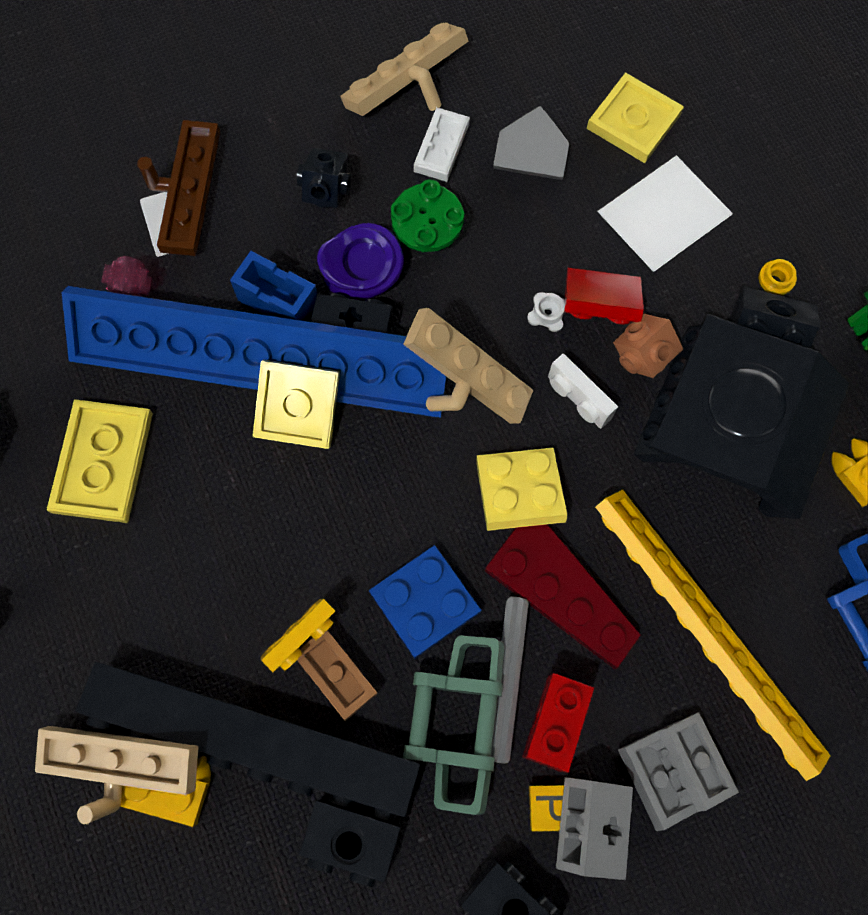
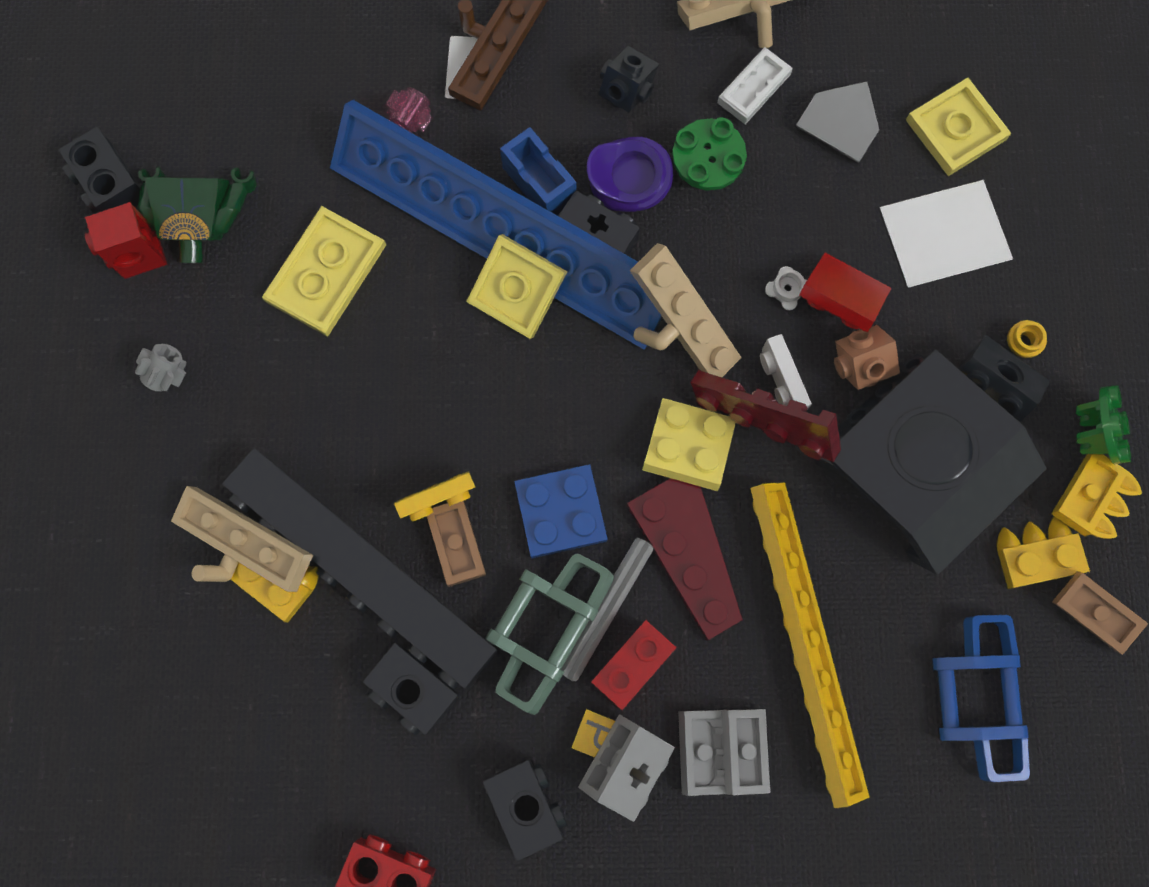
camera: 25 degrees right, 5 degrees up
(632, 431) = (791, 423): none -> dark red wing

